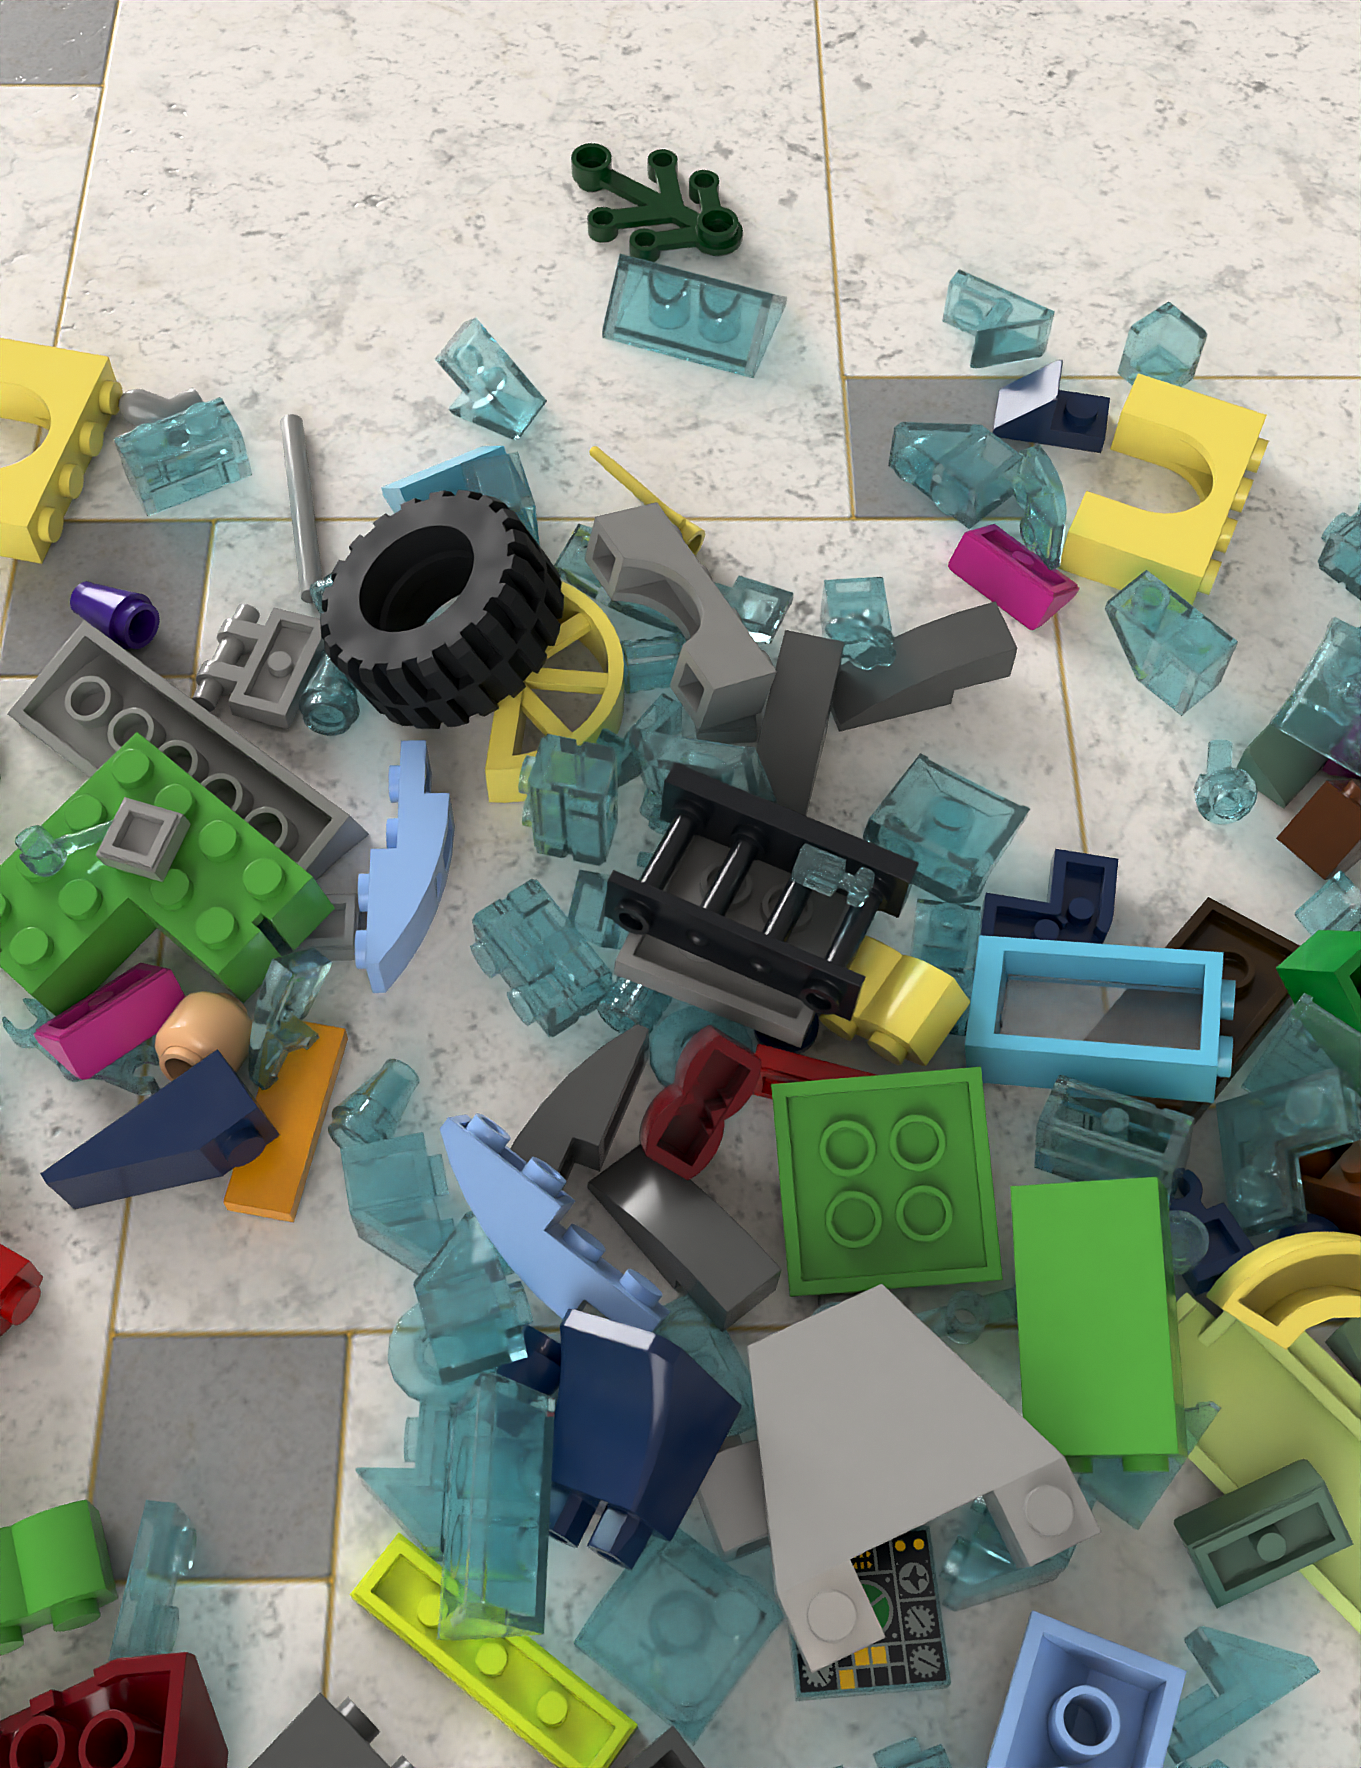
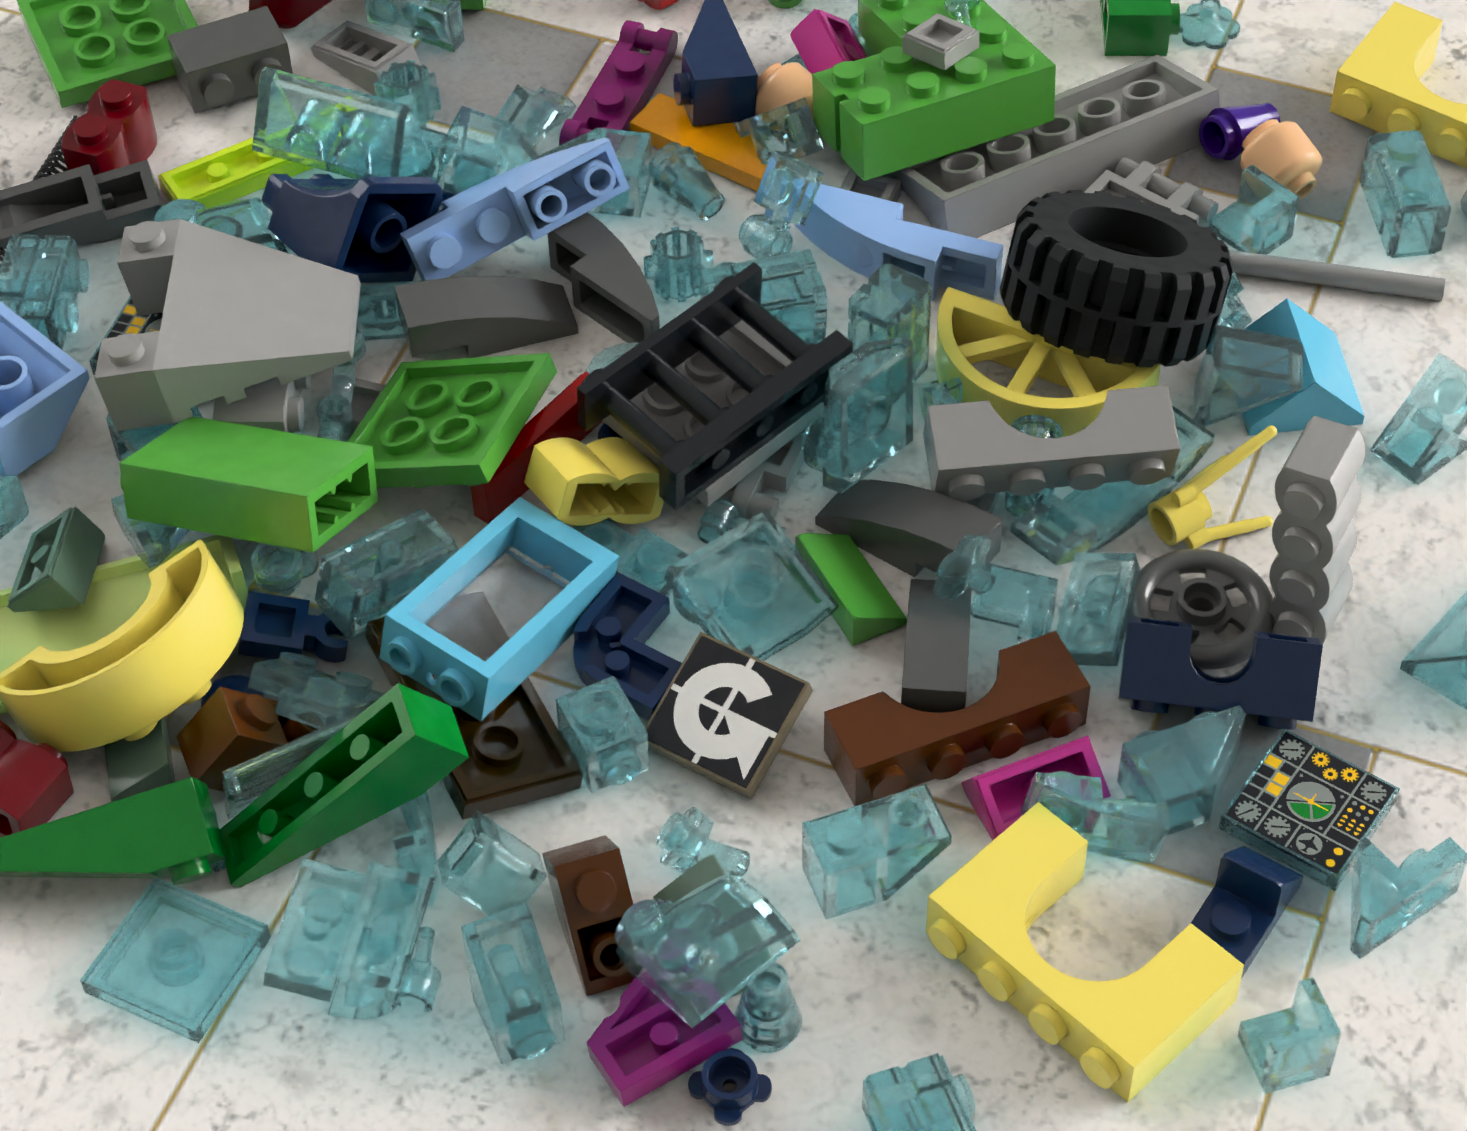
camera: 115 degrees right, 10 degrees down
(162, 562) = (1283, 154): none -> light nougat head
(225, 1258) = (624, 81): none -> magenta plate
(226, 1611) = (365, 59): none -> light grey slope
(248, 568) = (1260, 217): none -> clear light blue panel
(315, 1322) = (536, 112): none -> clear light blue slope
(315, 1490) = (409, 79): none -> clear light blue gear
(393, 969) = (787, 196): none -> clear light blue plate
(506, 1053) = (677, 264): none -> clear light blue gear
(688, 1116) = (569, 323): dark red brick -> none
(733, 369) = (1315, 528): none -> light grey brick
(772, 504) = (1210, 598): none -> dark grey plate
(805, 562) = (1098, 606): none -> clear light blue plate
(827, 873) = (691, 408): clear light blue piece -> none
(865, 490) = (1274, 683): none -> dark blue arch
(874, 767) = (863, 600): none -> bright green slope
(933, 388) = (1308, 809): none -> tile
(1053, 668) = (889, 747): none -> reddish brown arch
(1087, 800) = (726, 715): none -> tile
(1174, 881) = (603, 734): none -> clear light blue brick

